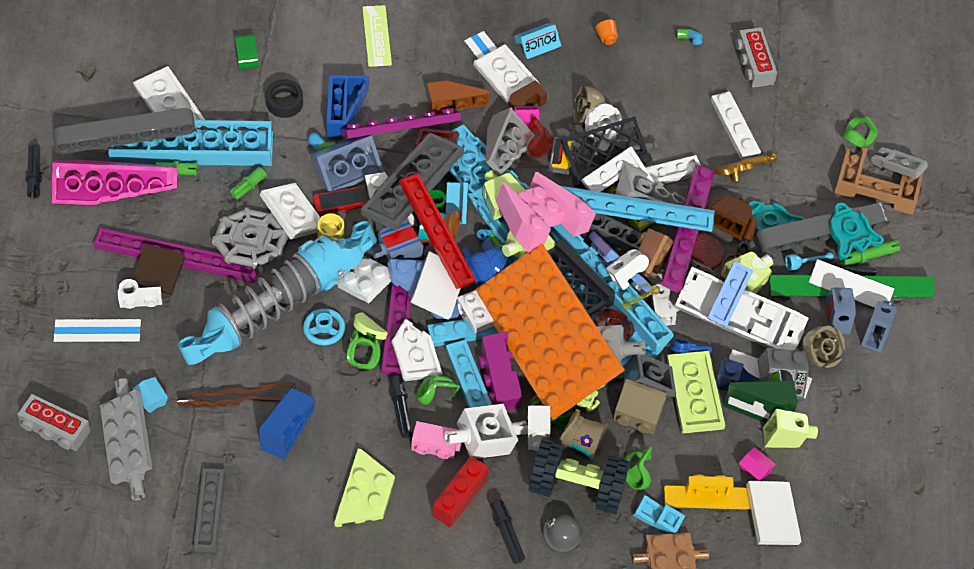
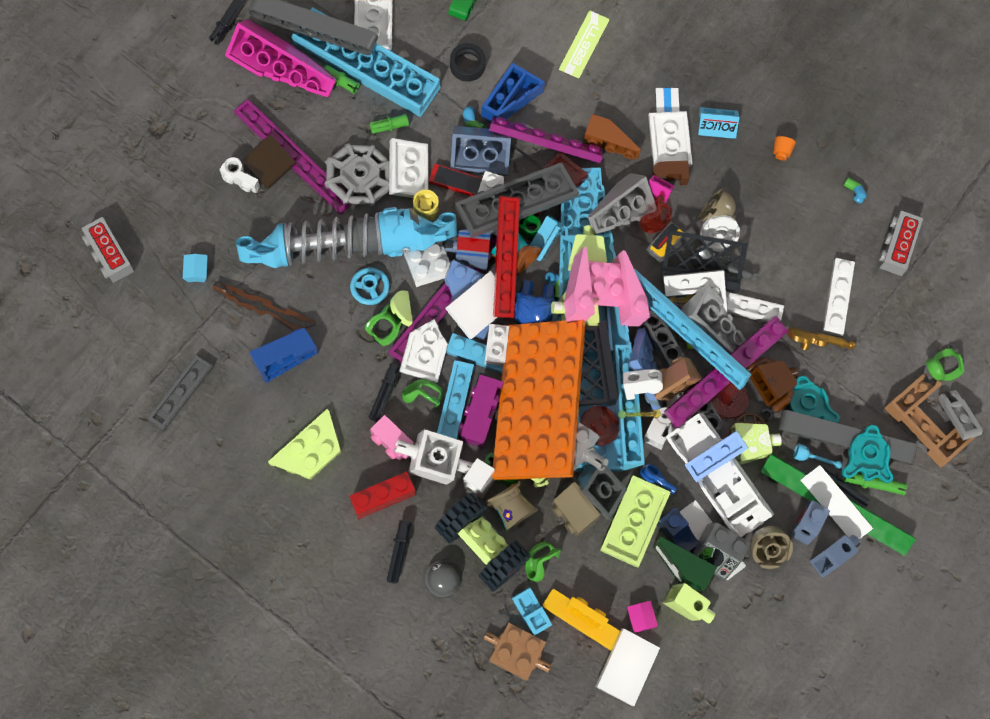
camera: 30 degrees right, 15 degrees up
(97, 330) = (192, 187): white sticker -> none
(126, 438) = (153, 295): light grey plate -> none

